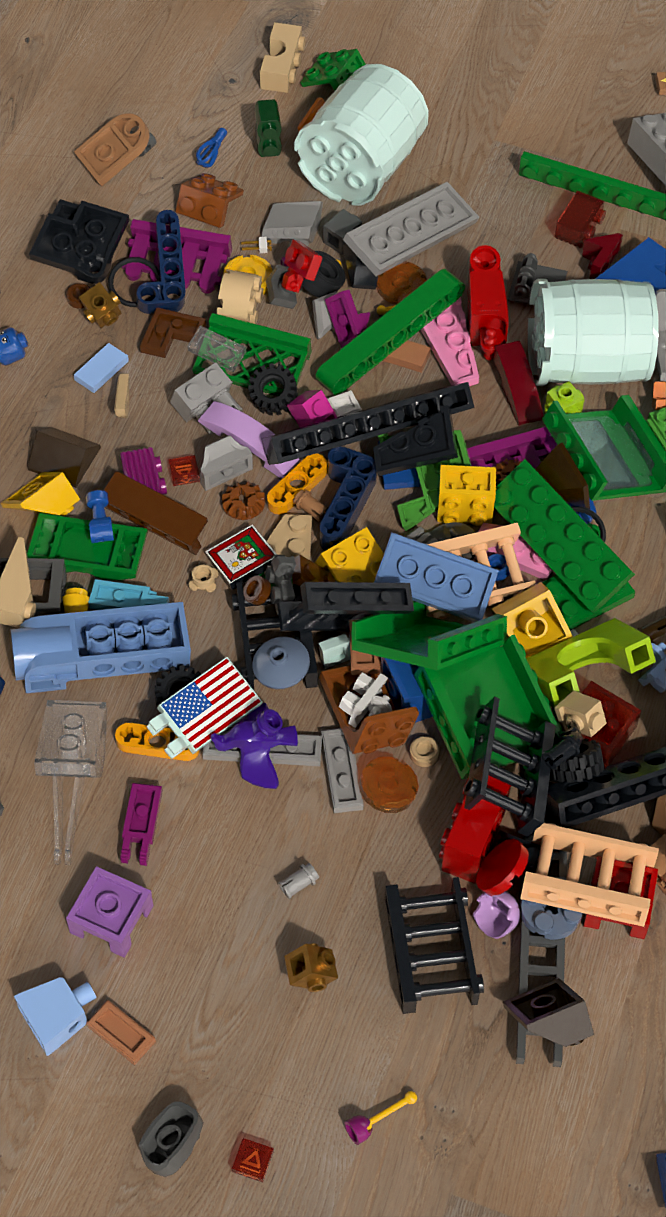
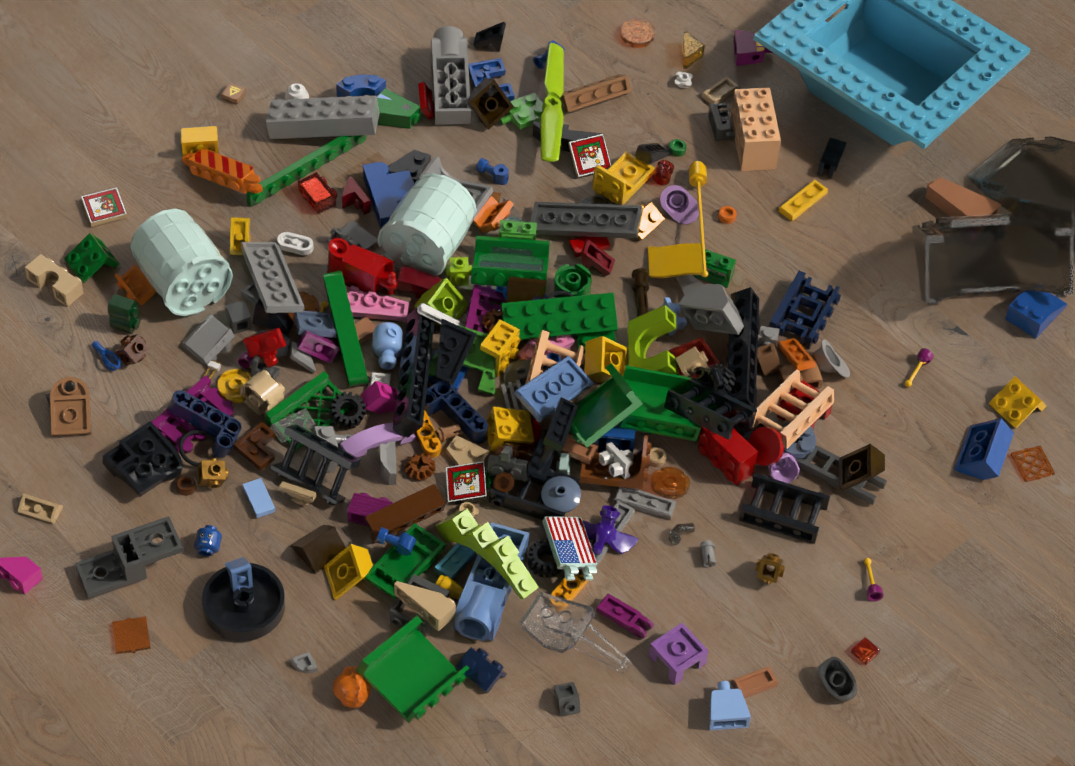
camera: 65 degrees left, 5 degrees down
(120, 620) = (497, 551): none -> lime arch
(177, 391) = (329, 453): none -> black fence
(184, 470) = (375, 487): clear red tile -> none
(207, 199) = (155, 376): dark orange bracket -> none
(220, 160) = (132, 349): none -> reddish brown brick
(315, 828) = (678, 530): none -> clear smoke arm
(372, 296) = (315, 322): none -> sand blue tile
(397, 382) = (387, 344): none -> light blue piece
(416, 52) = (104, 207): none -> tile
(461, 175) = (239, 233): none -> yellow slope
(468, 411) = (436, 315): none -> white axle
(493, 234) = (296, 243): none -> white plate
(500, 411) = (445, 299): none -> lime slope
(535, 120) = (223, 171): none -> orange hinge
(570, 85) = (199, 138): none -> yellow bracket
(631, 530) = (573, 280): none -> green brick

